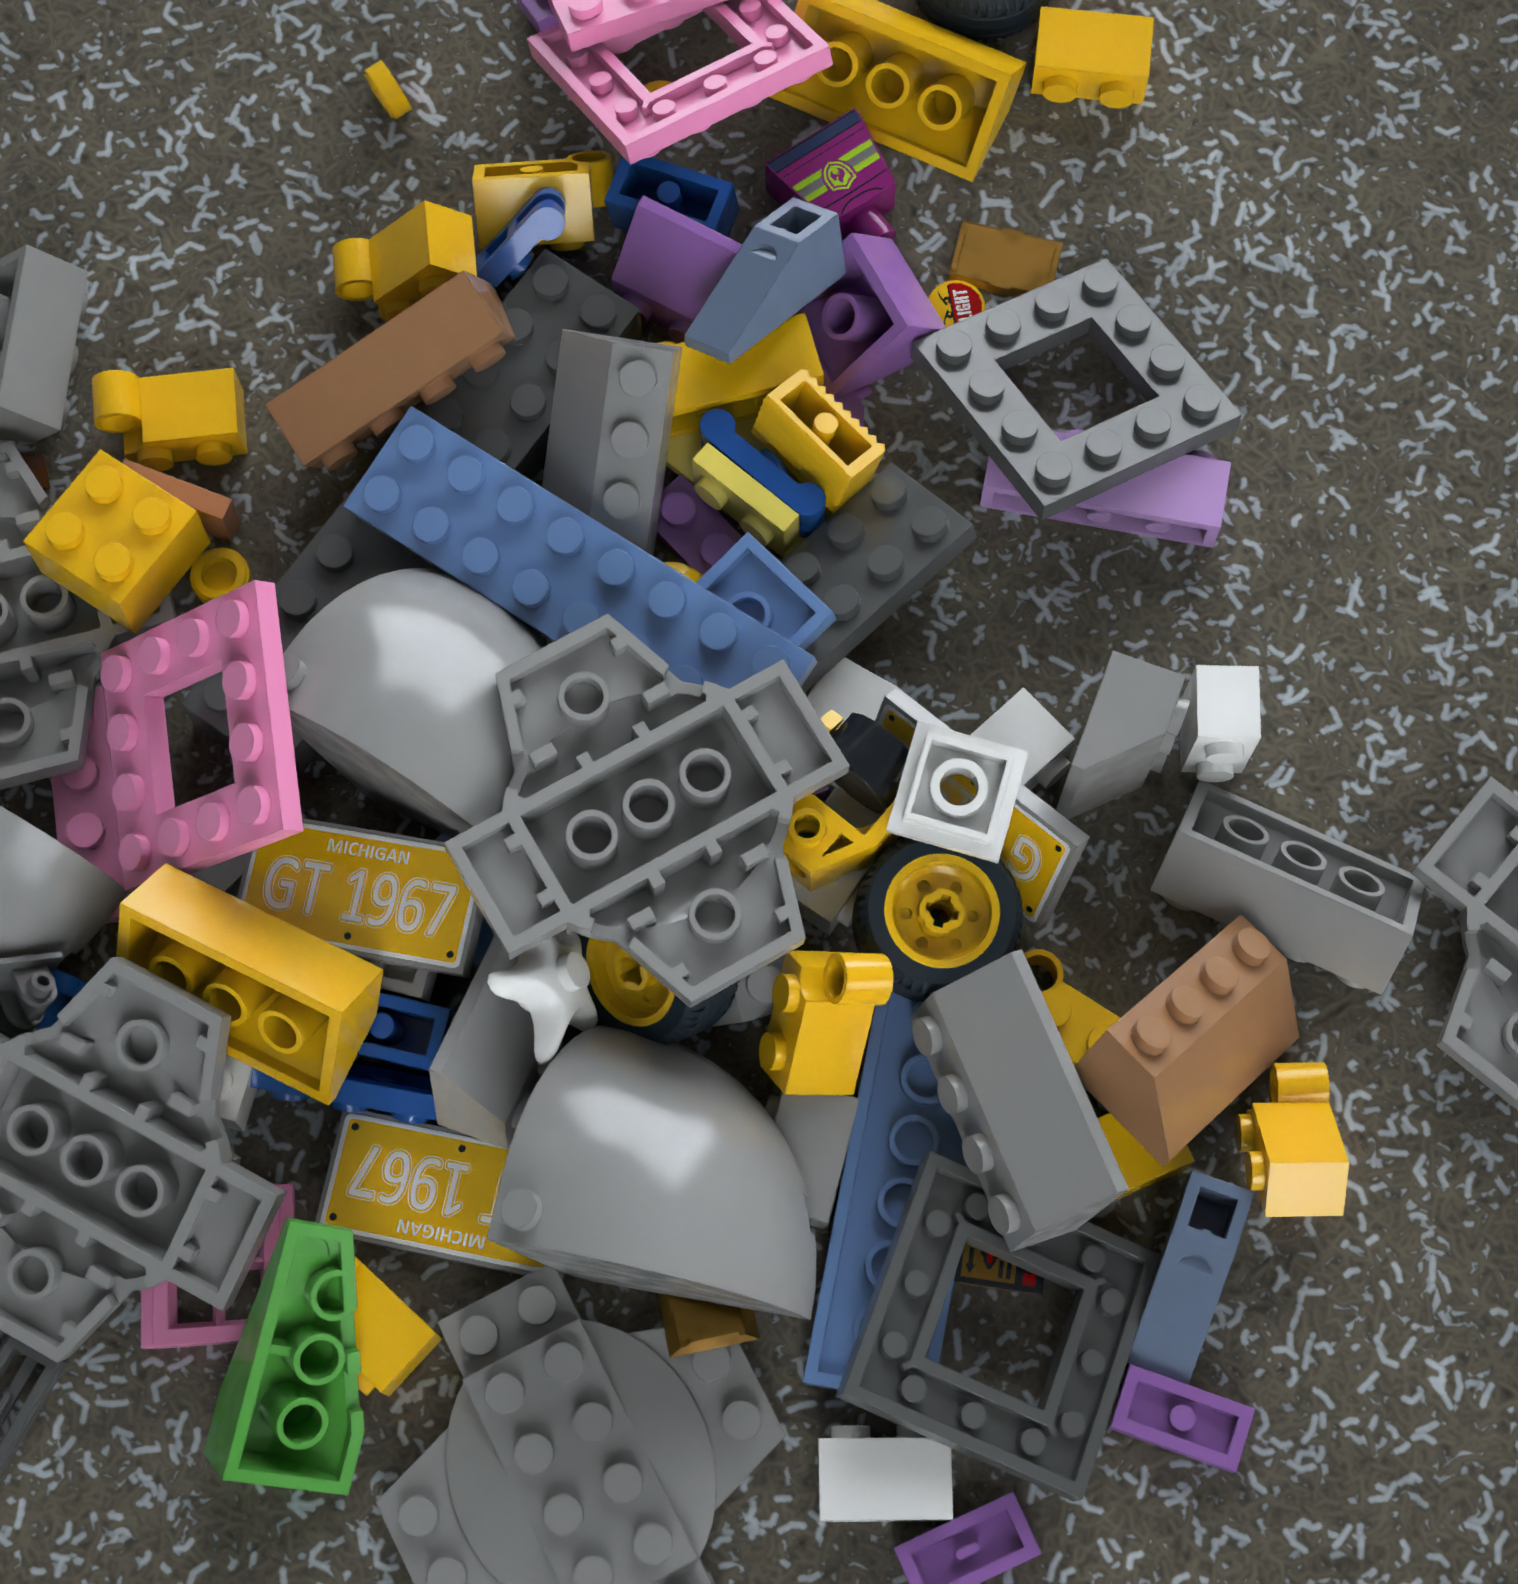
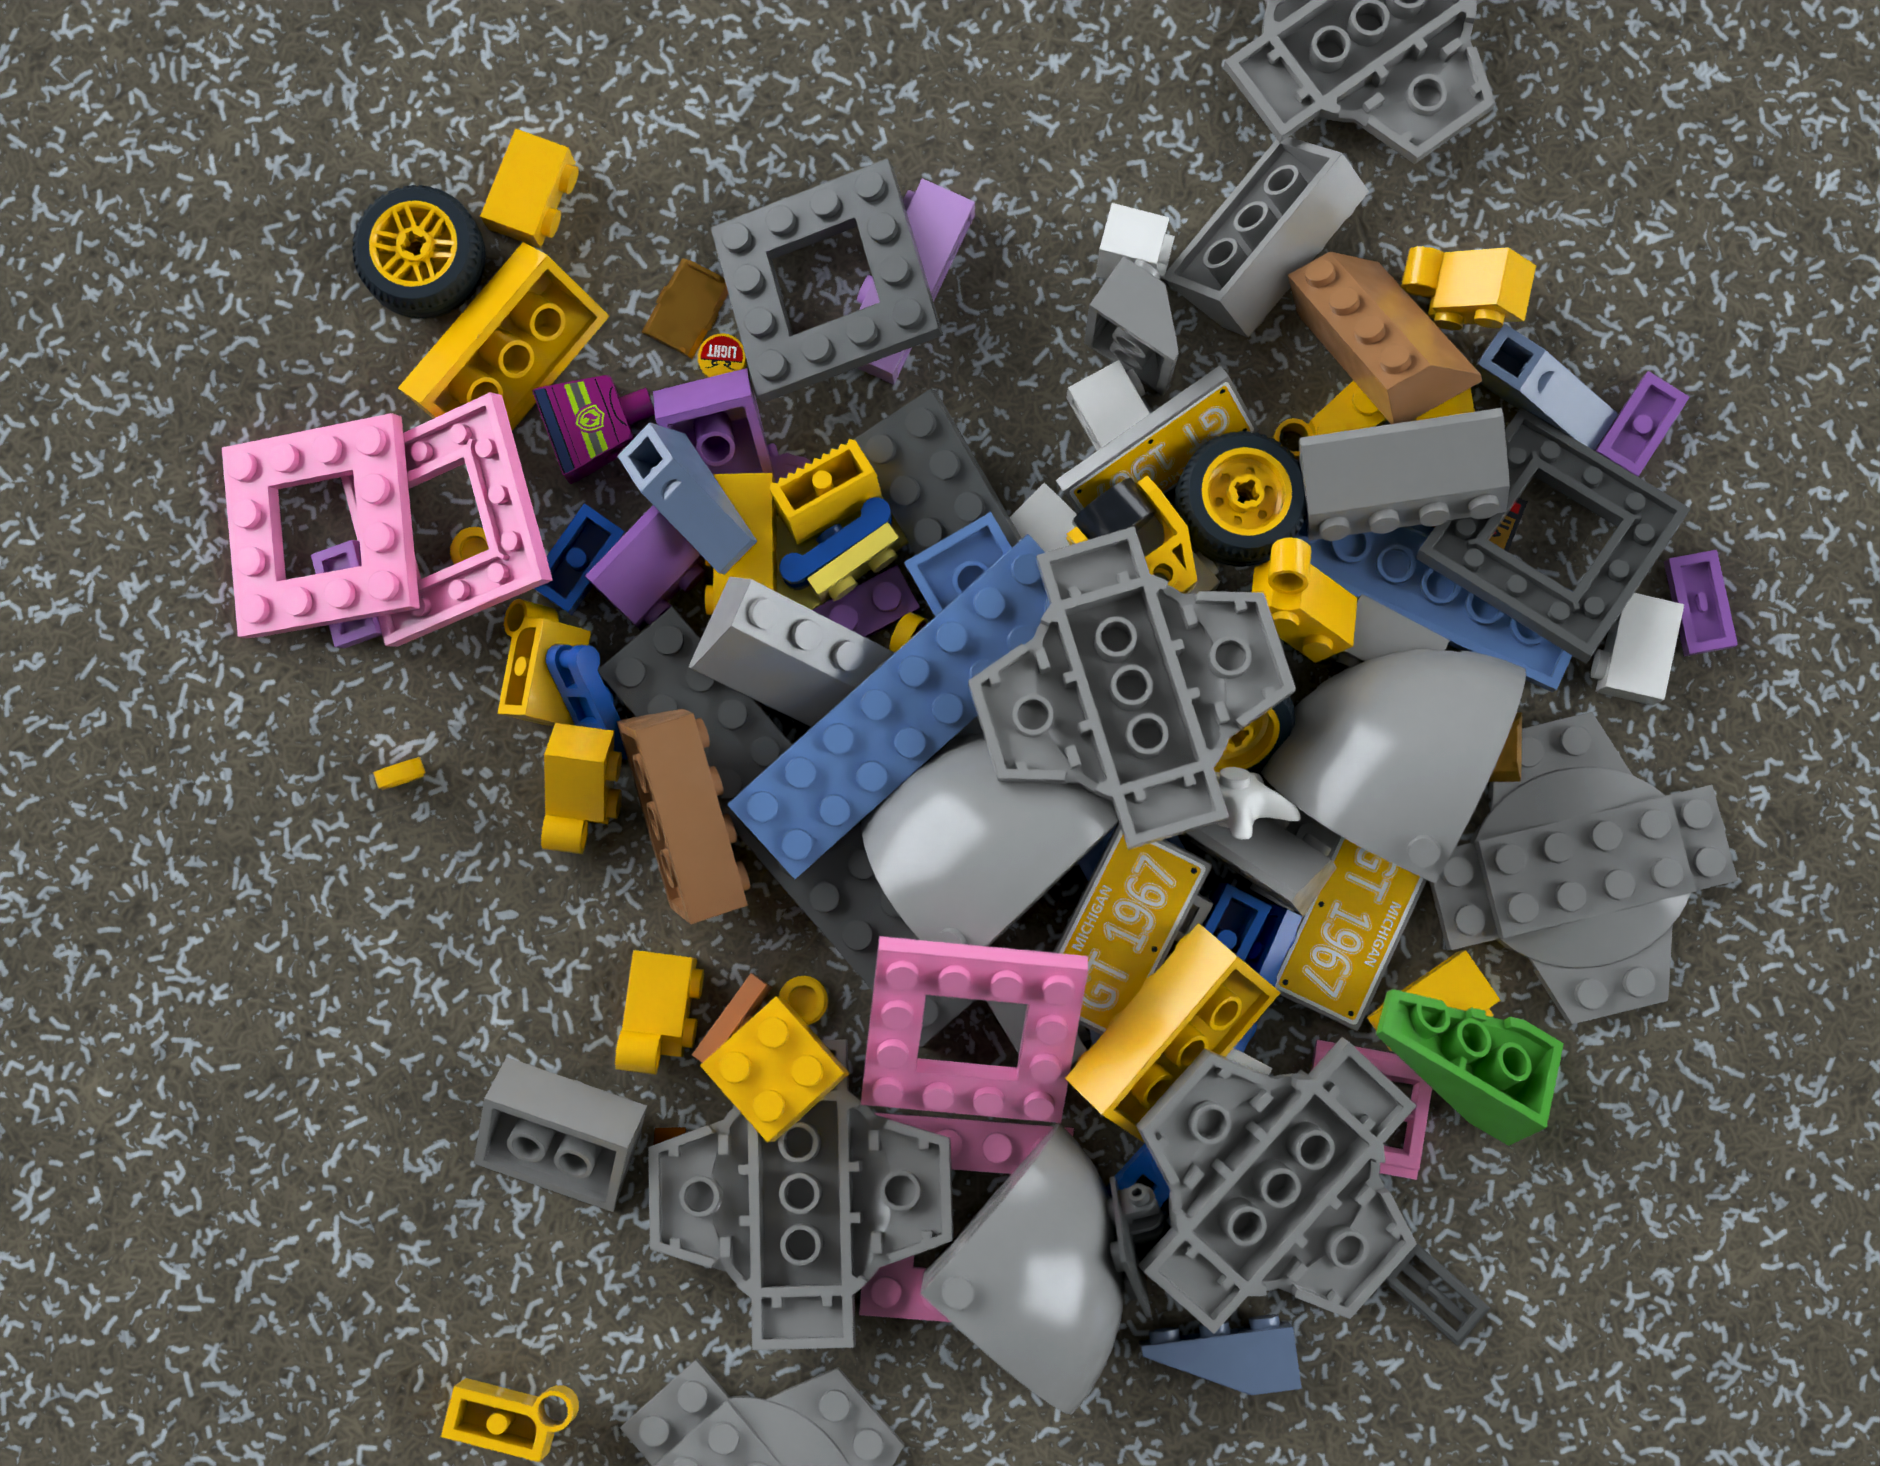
camera: 70 degrees left, 10 degrees up
(971, 828) = (1166, 483): white piece -> none

